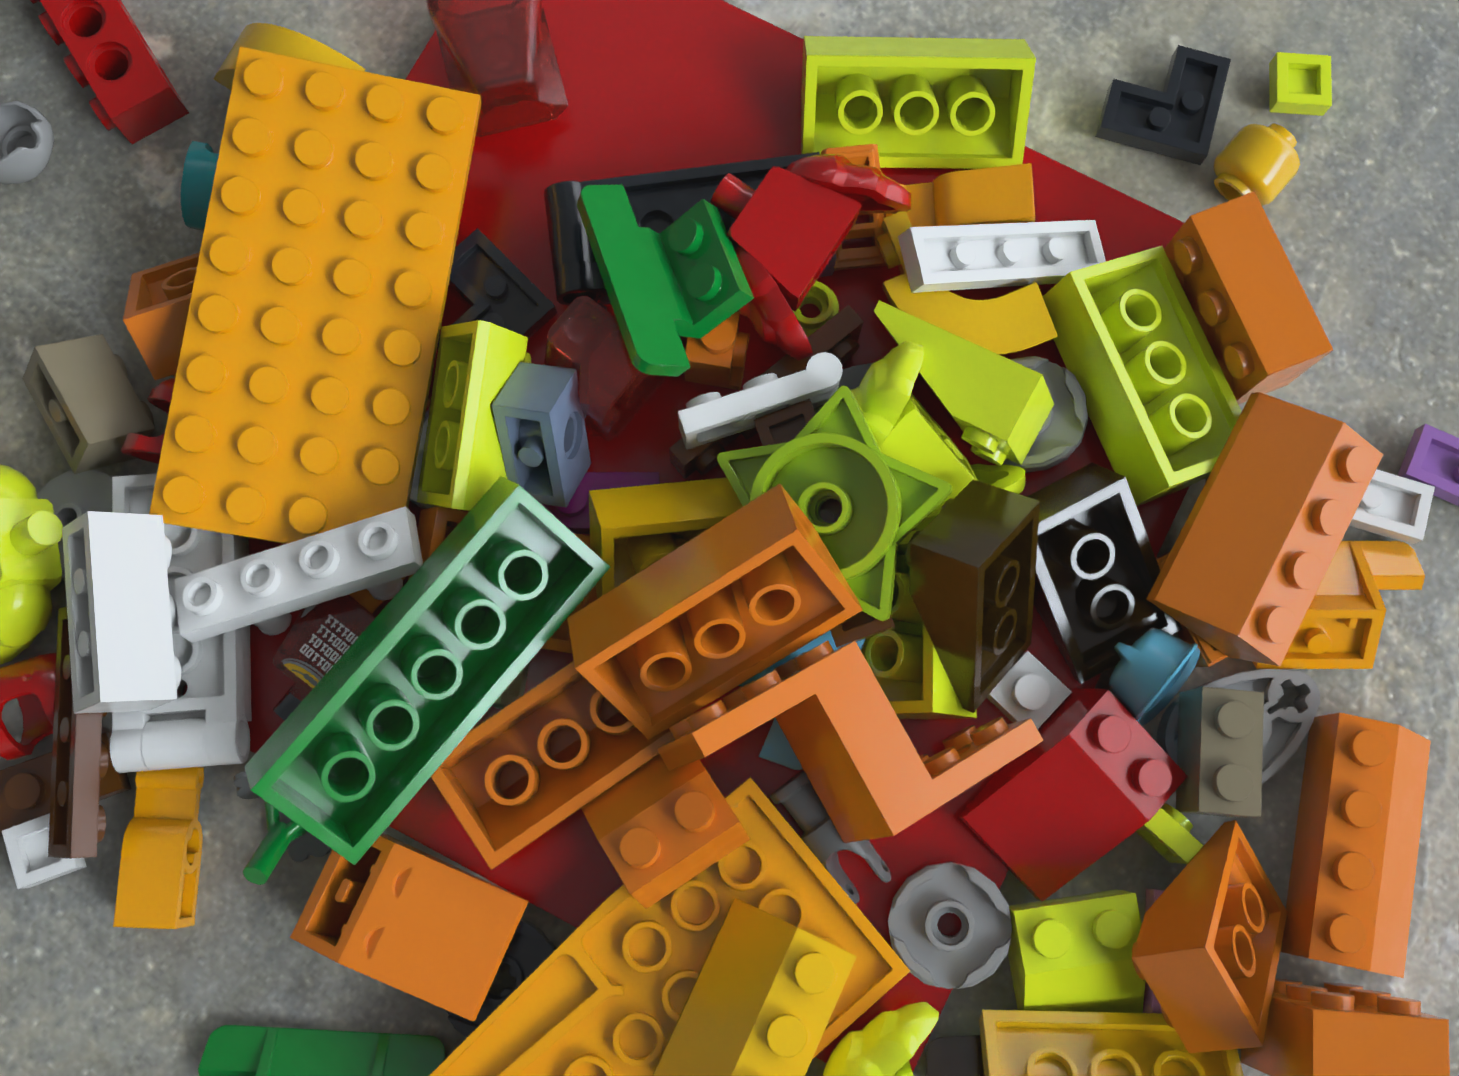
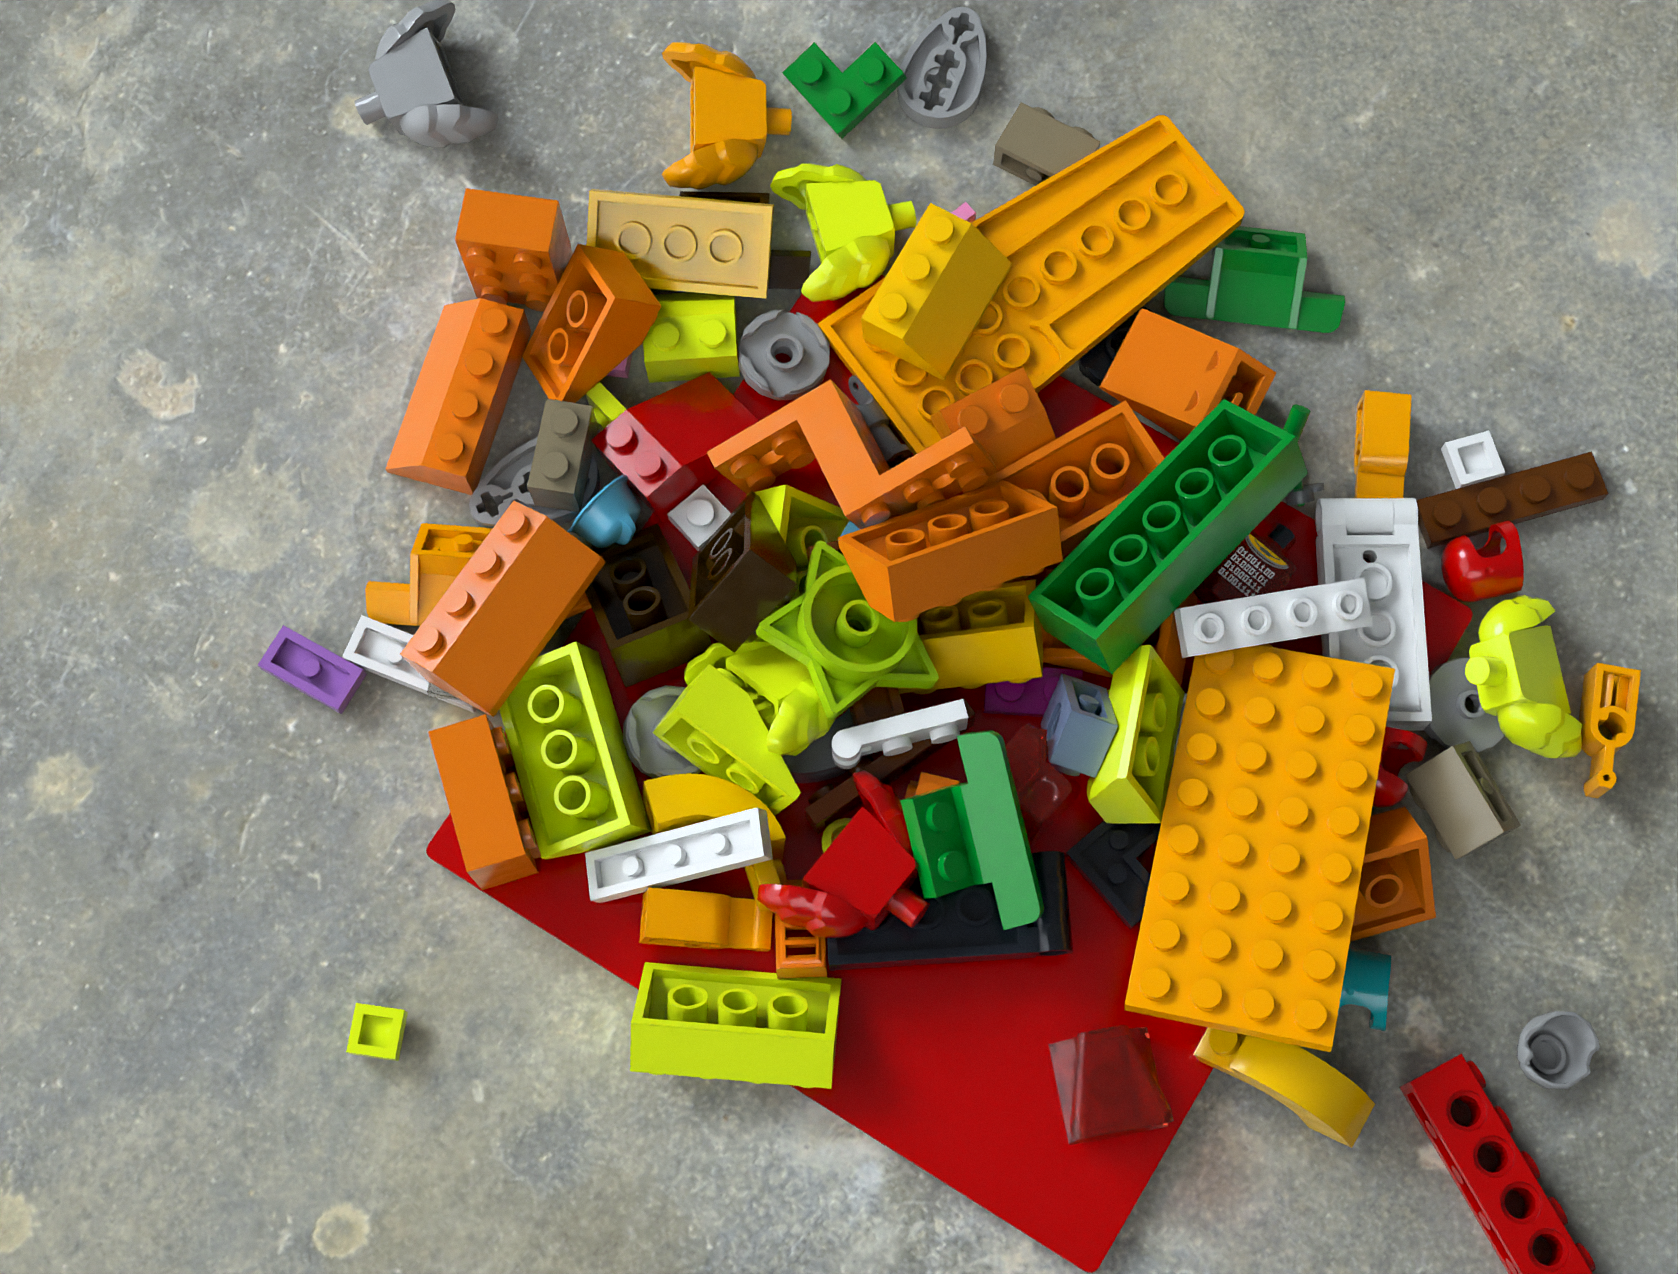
camera: 170 degrees left, 5 degrees down
(77, 766) = (1443, 524): reddish brown plate -> none
(119, 612) = (1410, 594): white brick -> none
(1171, 121) = (497, 1003): black plate -> none
(1257, 161) = (434, 952): yellow head -> none

